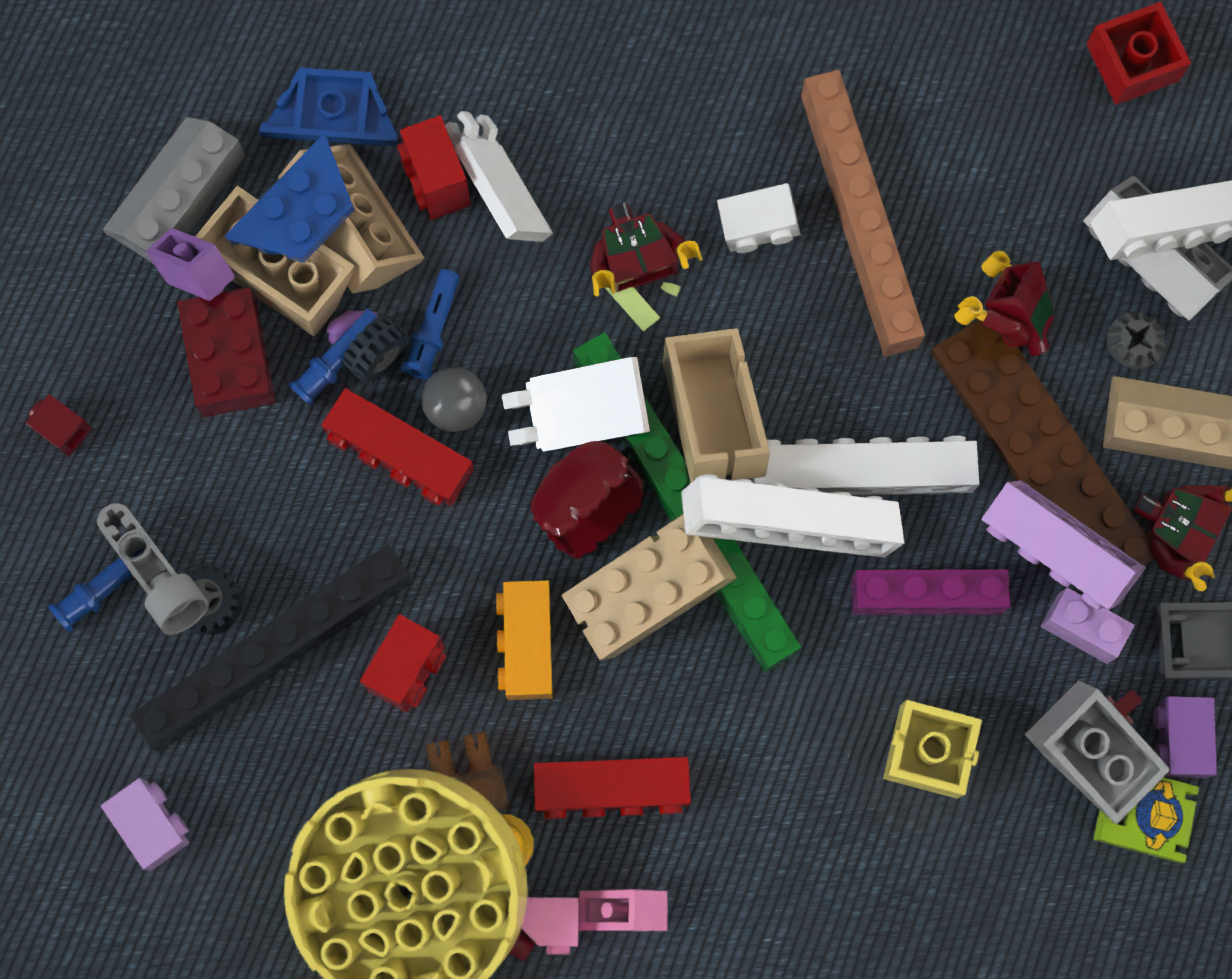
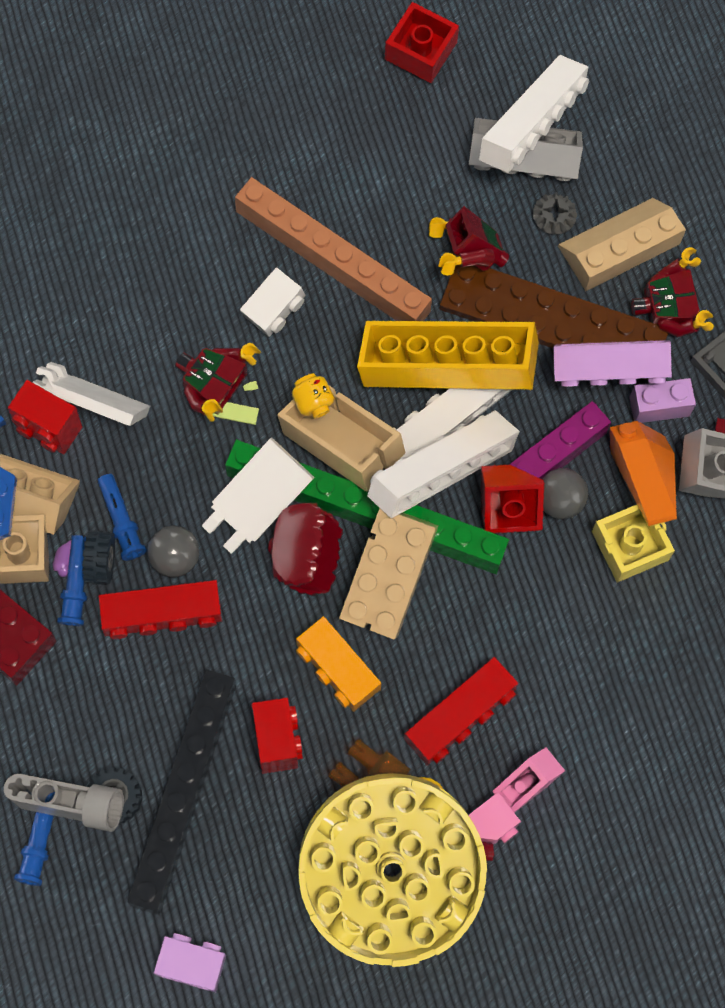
camera: 40 degrees left, 5 degrees down
(714, 345) = (312, 395): none -> yellow head
(835, 608) = (511, 499): none -> red slope
(893, 408) = (448, 354): none -> yellow brick
(898, 642) = (564, 493): none -> dark grey piece
(1010, 687) = (647, 469): none -> orange wedge

